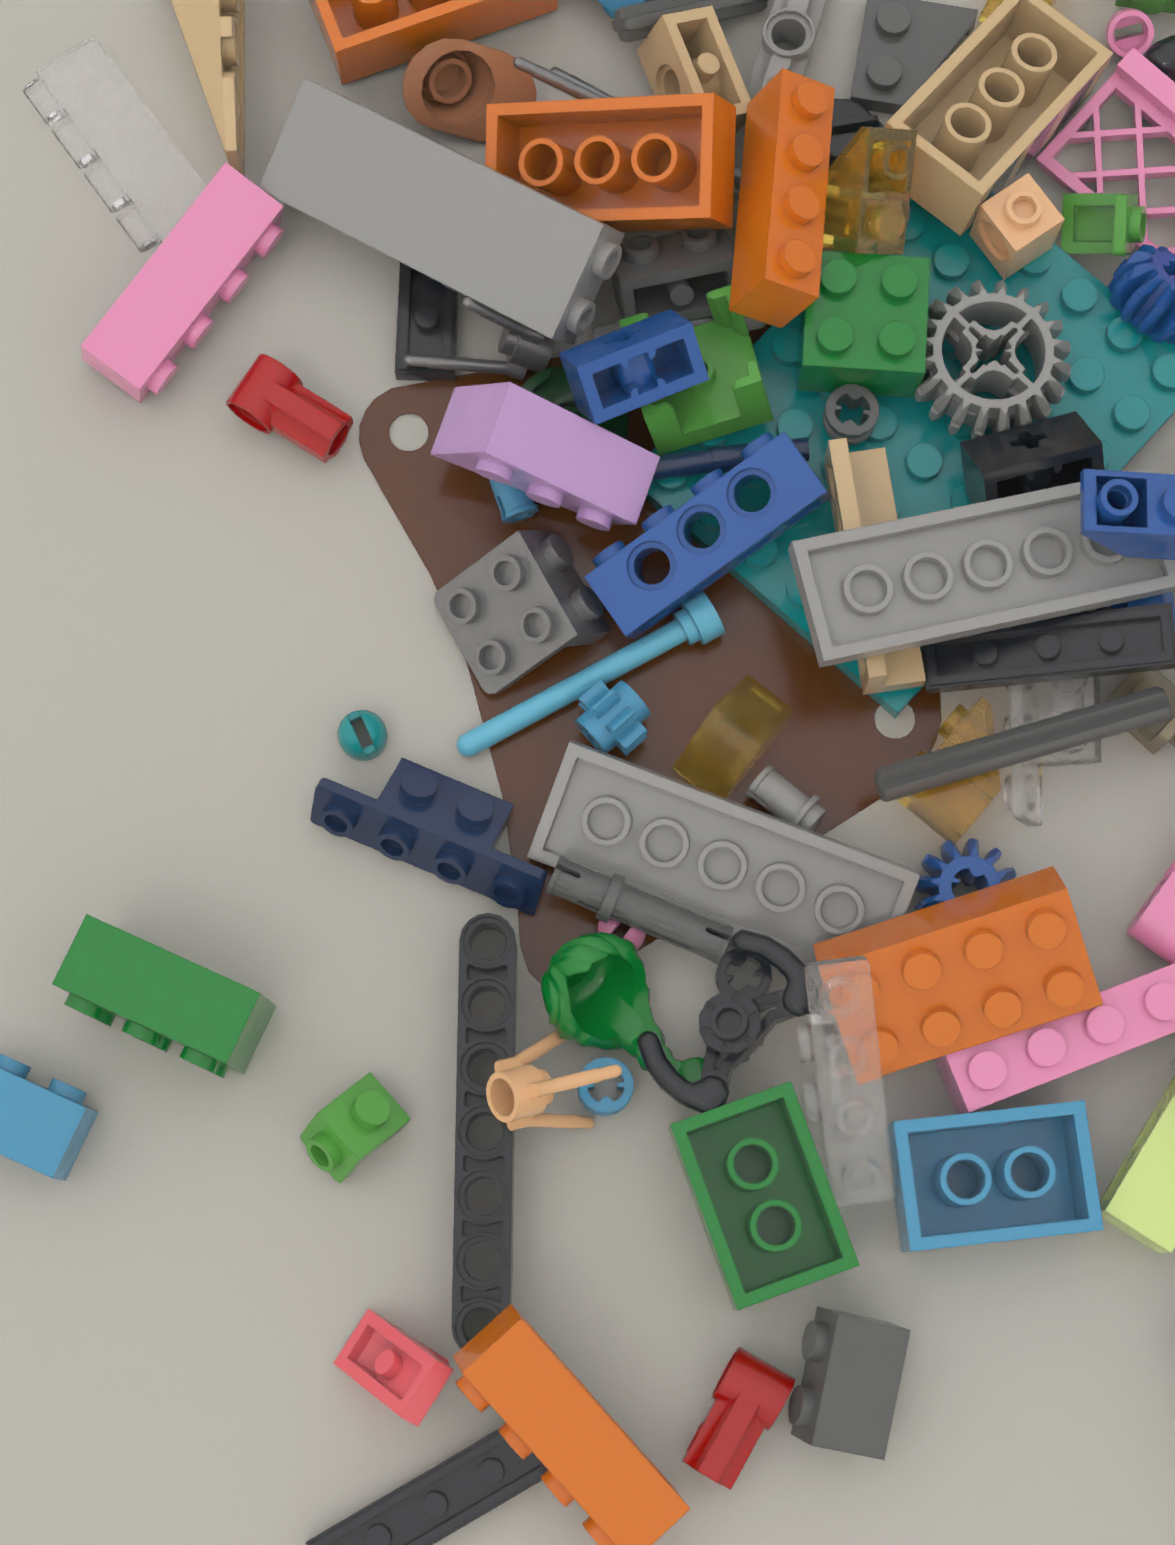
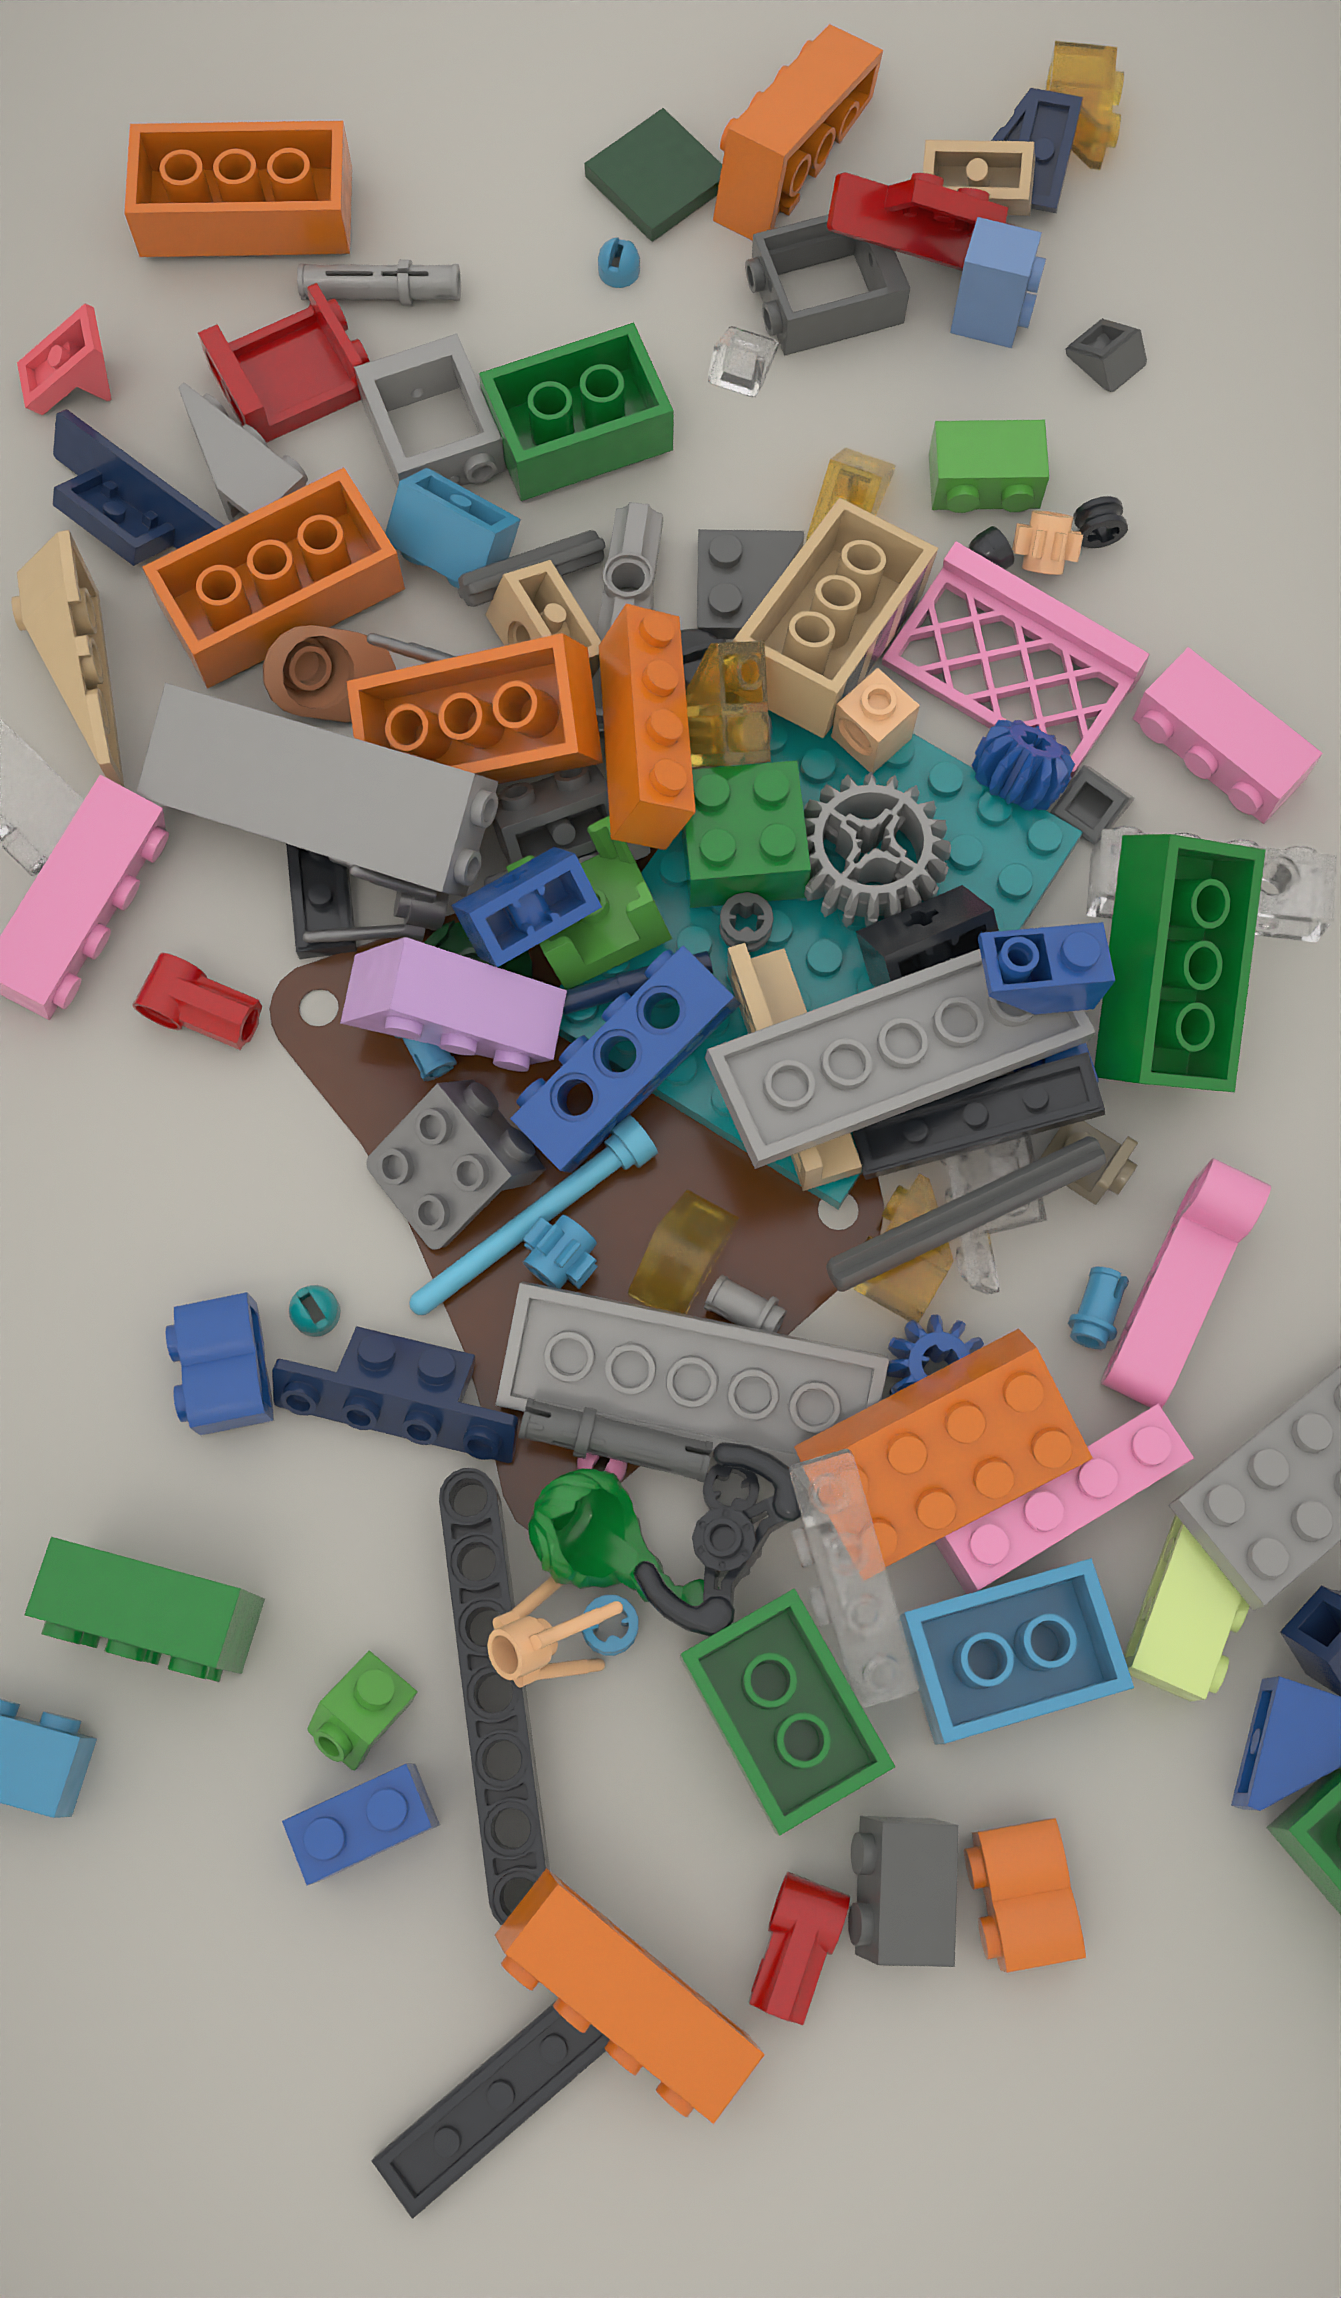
camera: 10 degrees left, 5 degrees down
(265, 773) = (221, 1364): none -> blue brick
(340, 1232) = (360, 1823): none -> blue brick
(394, 1367) = (437, 1956): coral slope -> none
(965, 1407) = (1026, 1896): none -> orange brick
(1102, 223) = (956, 707): bright green bracket -> none
(1137, 858) = (1098, 1308): none -> dark azure pin
(1140, 41) = (945, 517): bright pink hinge -> none

